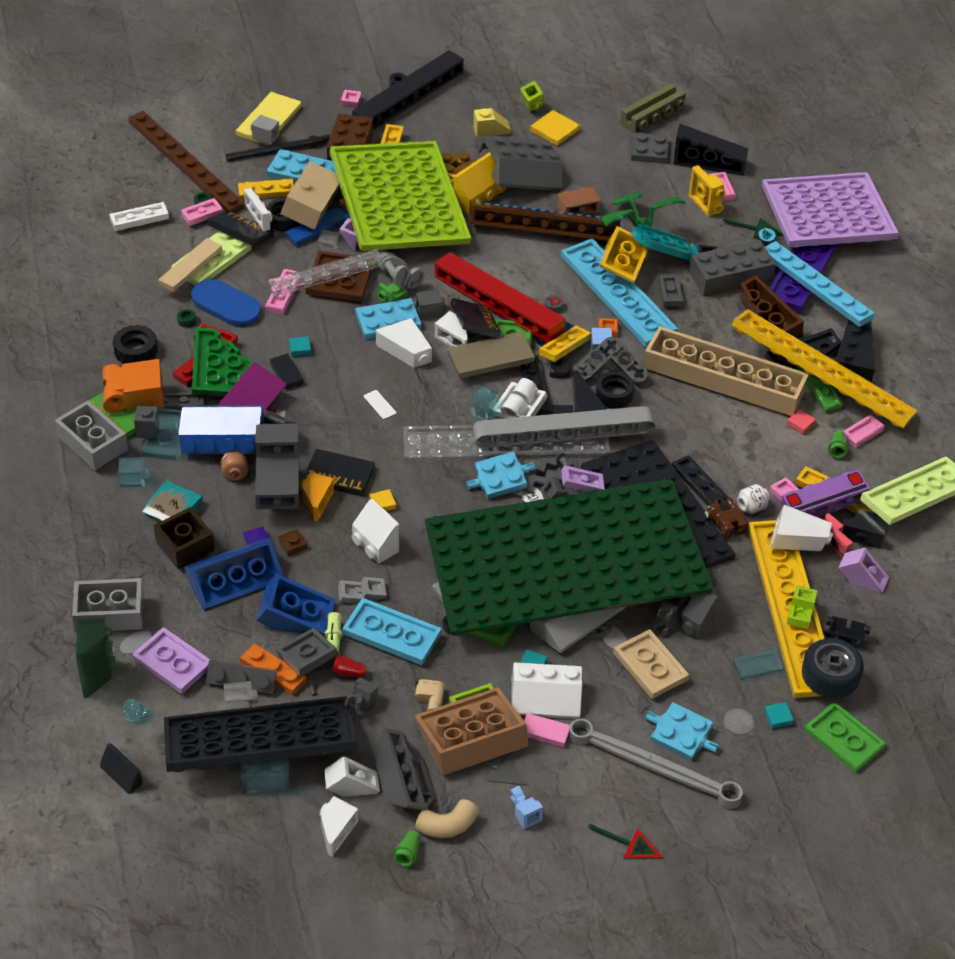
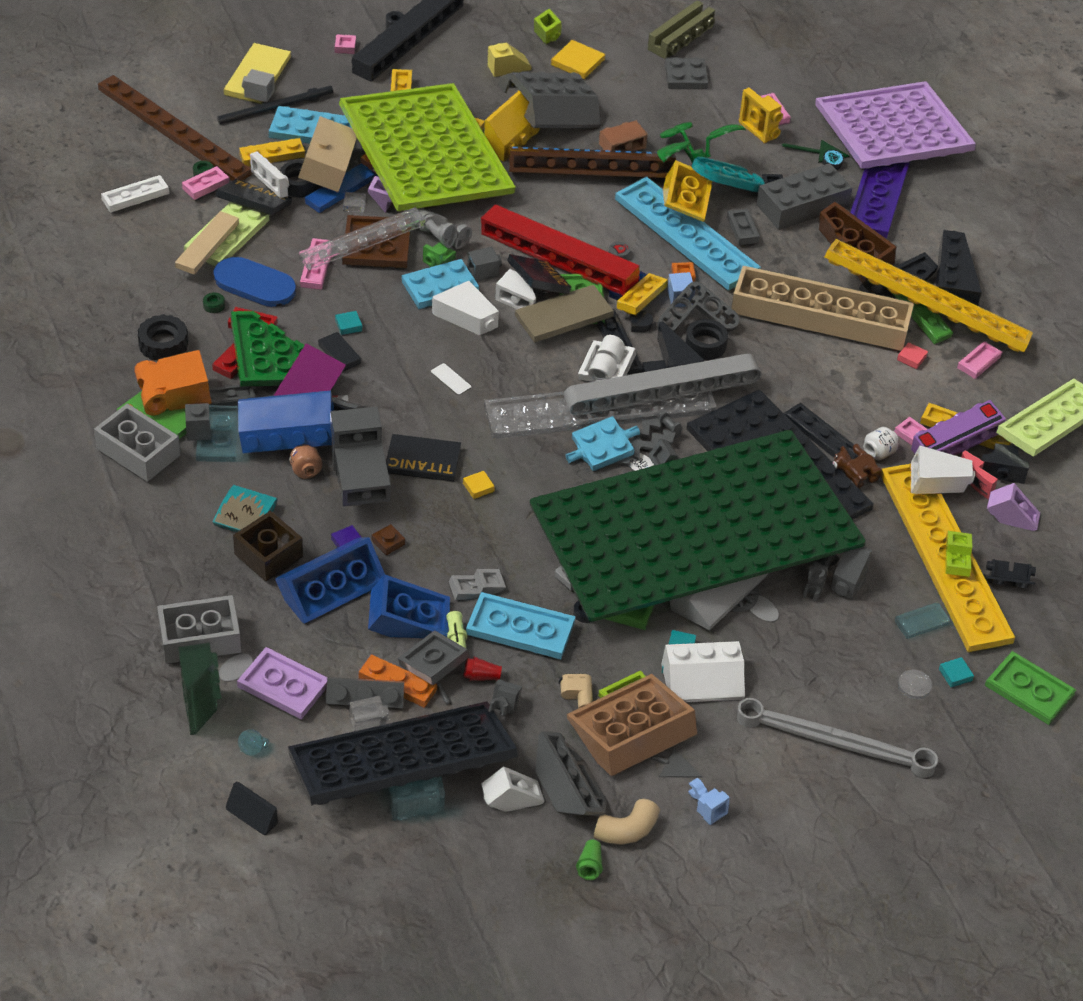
camera: 10 degrees left, 0 degrees up
(133, 472) = (192, 479): clear light blue brick -> none
(316, 493) = (405, 482): light orange slope -> none
(337, 822) = (506, 840): white slope -> none
(350, 131) = (354, 80): reddish brown brick -> none
(376, 532) = (482, 518): white slope -> none
(460, 160) = (481, 102): pearl gold plate -> none
(483, 402) = (567, 366): clear light blue brick -> none
(547, 730) = (714, 715): bright pink tile -> none
(581, 480) = (693, 440): lavender slope -> none
(638, 847) = (837, 830): piece -> none
(651, 664) = (809, 631): tan plate -> none
(682, 731) = (857, 700): medium azure plate -> none
(708, 152) = (744, 70): black wedge -> none
(820, 285) = (905, 207): medium azure plate -> none
(832, 668) = (1006, 615): black wheel -> none
(838, 446) = (958, 378): bright green cone -> none

